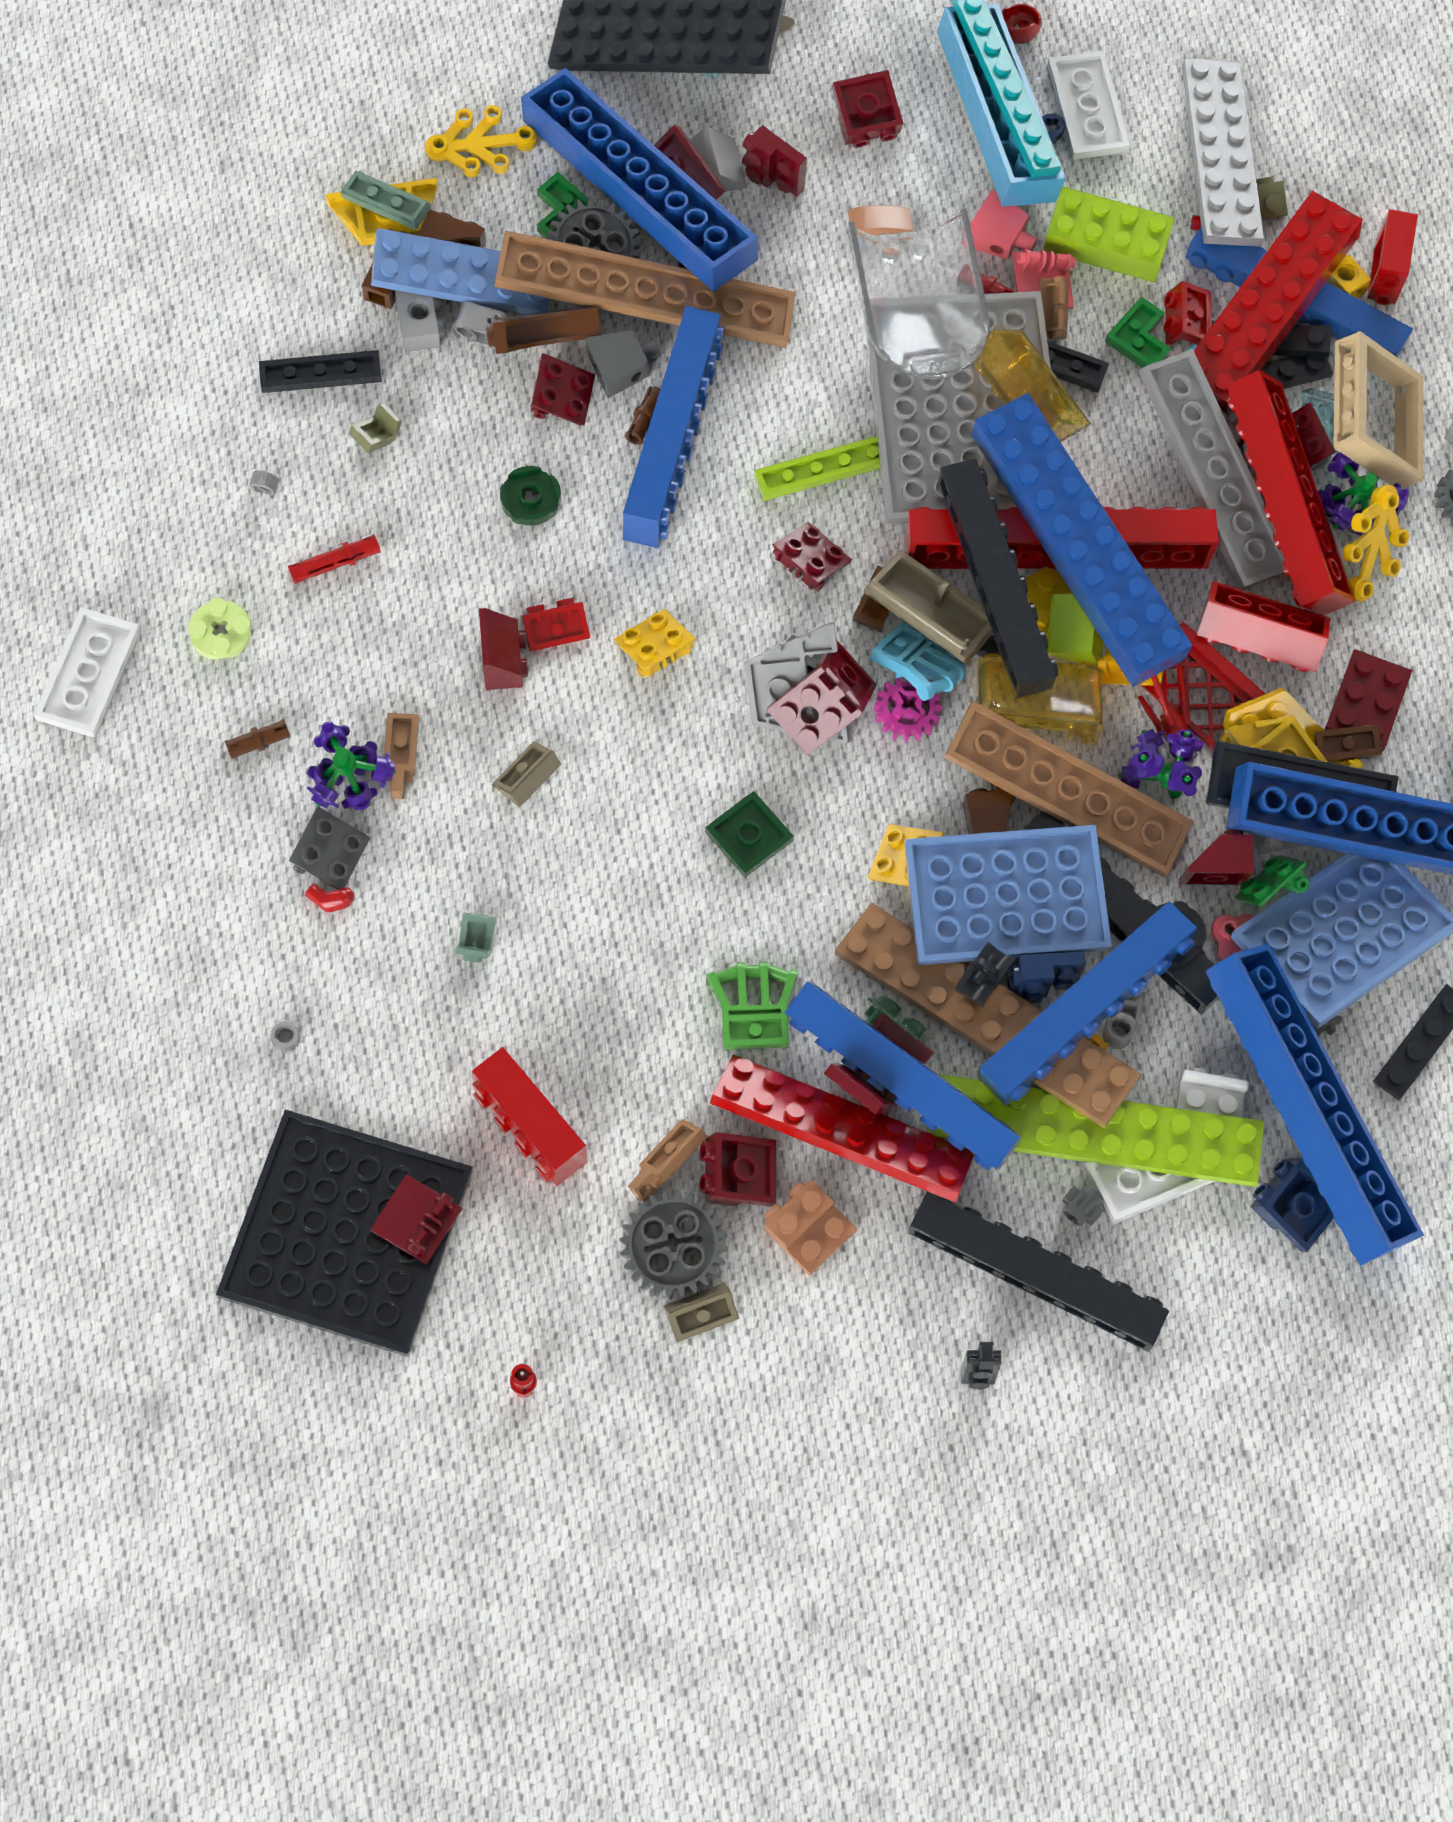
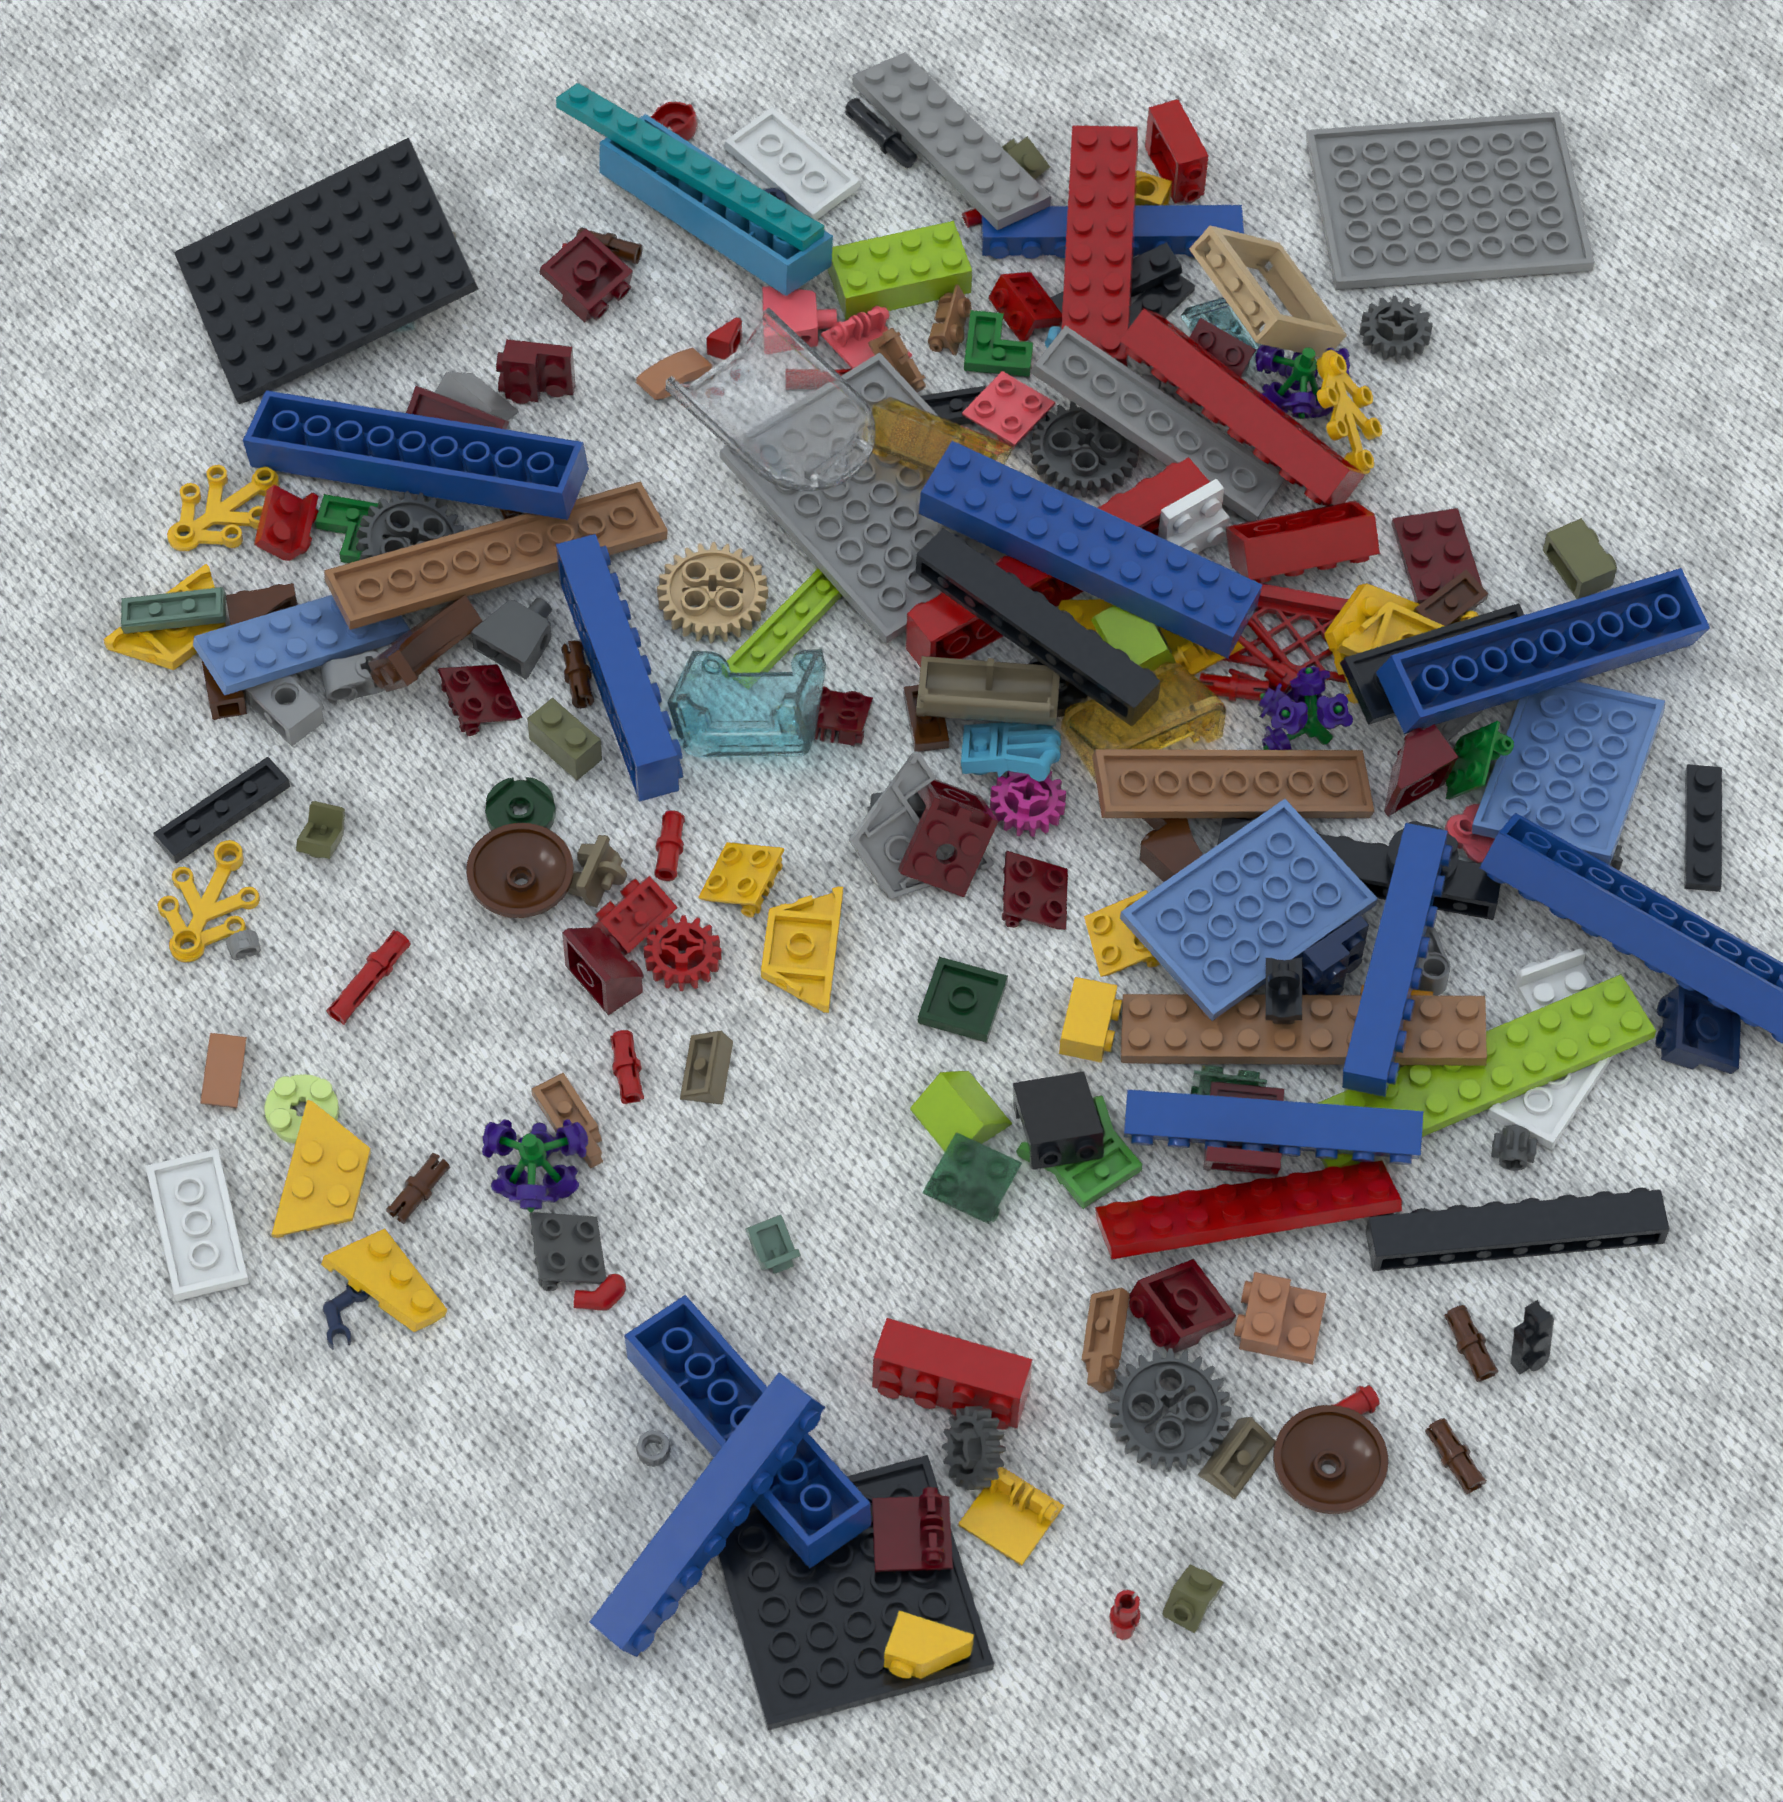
camera: 30 degrees left, 10 degrees down
(139, 791) = (332, 1312): none -> dark blue arm
(184, 567) = (223, 1070): none -> nougat slope
(189, 793) = (389, 1277): none -> yellow wing
(197, 688) = (322, 1175): none -> yellow wing
(259, 438) = (207, 907): none -> yellow plant
(271, 1113) = (707, 1515): none -> blue brick
(350, 1068) = (711, 1394): none -> blue brick
(359, 1310) = (924, 1647): none -> yellow slope
(469, 737) = (626, 1067): none -> red pin
(490, 526) = (514, 854): none -> reddish brown dish
(503, 1249) = (1011, 1516): none -> yellow hinge
(505, 1183) = (973, 1447): none -> dark grey gear
(514, 178) = (286, 523): none -> red bracket
(551, 576) = (600, 871): none -> dark tan hips
(569, 687) = (700, 954): none -> red gear
(589, 1397) = (1191, 1597): none -> olive bracket
(598, 460) = (564, 739): none -> olive piece
(618, 587) = (669, 845): none -> red pin
(654, 977) = (972, 1178): none -> clear green hinge
(661, 723) = (803, 947): none -> yellow wing
(685, 920) = (958, 1105): none -> lime slope
(742, 515) = (747, 712): none -> clear light blue windscreen
(747, 971) = (1059, 1120): none -> black panel
(762, 1336) = (1334, 1438): none -> reddish brown dish
(788, 409) = (712, 616): none -> tan gear
(816, 1328) = (1361, 1401): none -> red pin
(831, 907) = (1089, 1019): none -> yellow brick
(862, 783) = (1034, 892): none -> dark red hinge
(864, 1416) = (1455, 1456): none -> reddish brown pin
(906, 96) = (621, 248): none -> reddish brown pin
(937, 214) = (725, 339): none -> red slope
(939, 1336) = (1471, 1343): none -> reddish brown pin
(1113, 391) = (1008, 408): none -> coral hinge
(1124, 459) = (1081, 449): none -> dark grey gear
(1125, 294) = (953, 311): none -> medium nougat hinge
(1129, 710) = (1234, 686): none -> red pin
(1176, 126) = (873, 126): none -> black axle
(1187, 564) = (1196, 519): none -> white plate

